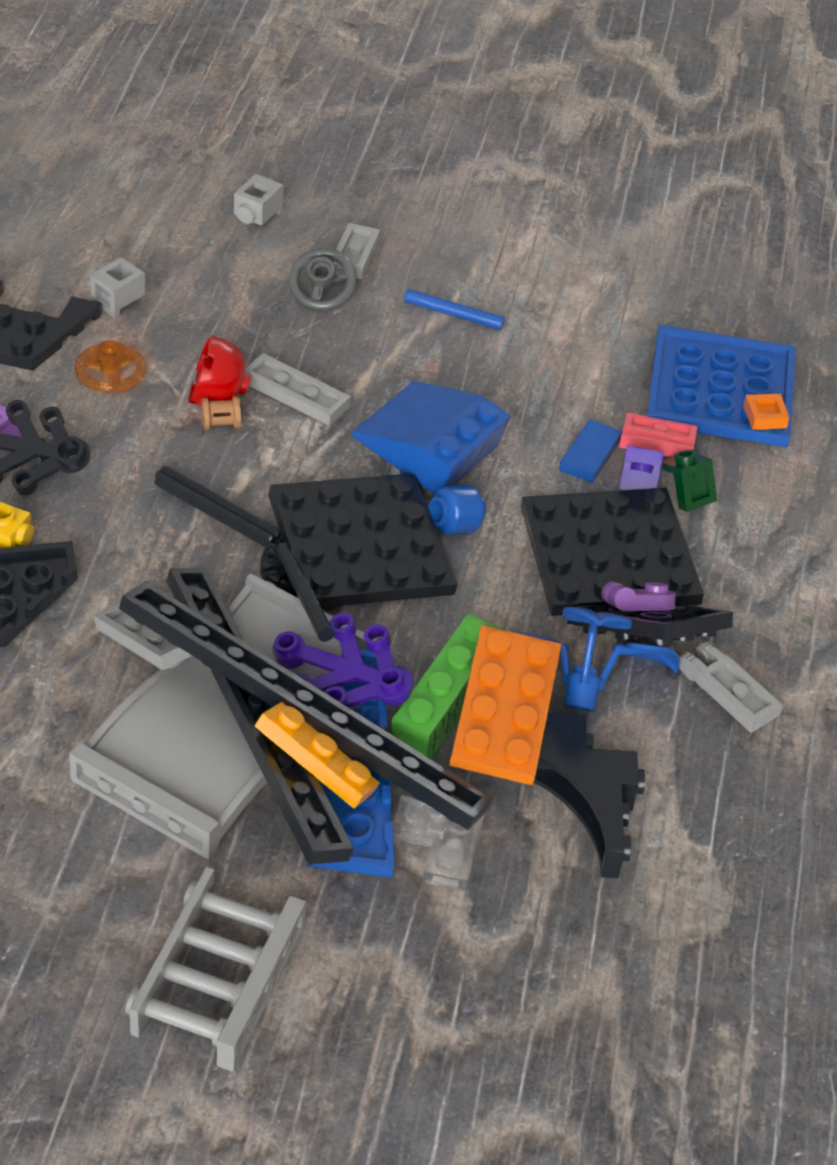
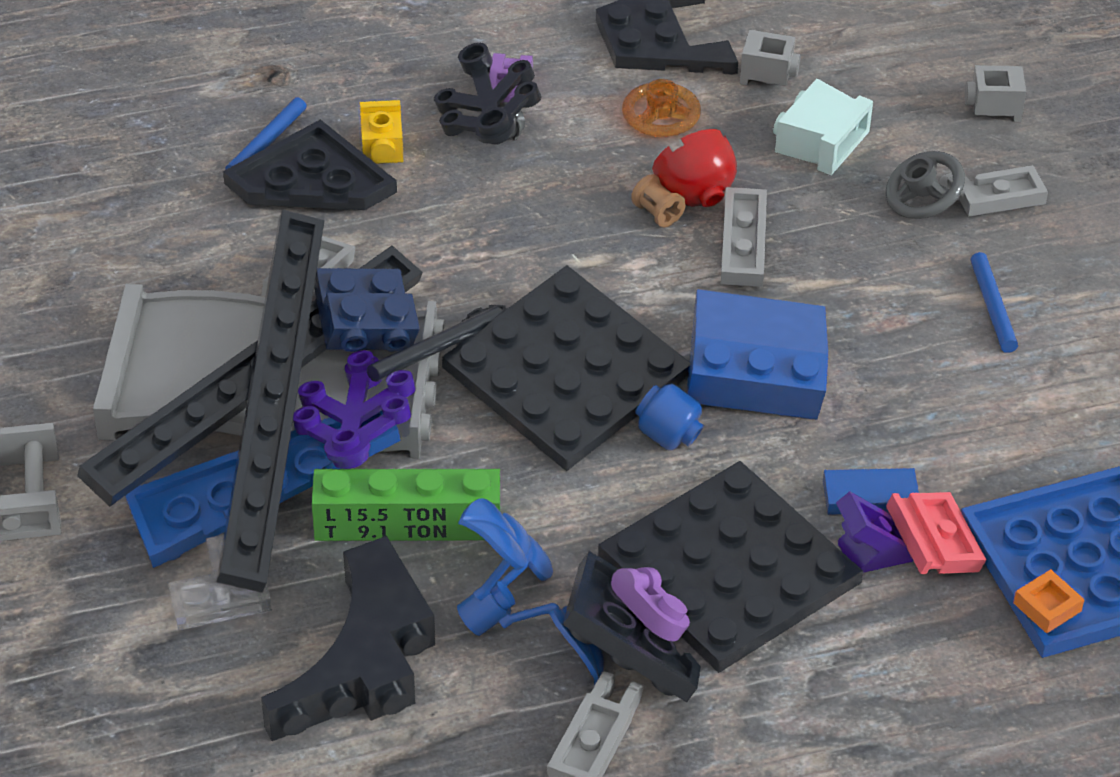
camera: 65 degrees right, 0 degrees up
(216, 295) = (823, 126): none -> light aqua hips
(216, 506) = (533, 246): black axle -> none
(246, 612) = (365, 309): none -> dark blue plate
(317, 754) = (216, 430): light orange plate -> none
(506, 705) = (386, 541): orange plate -> none
(692, 479) = (885, 583): dark green bracket -> none

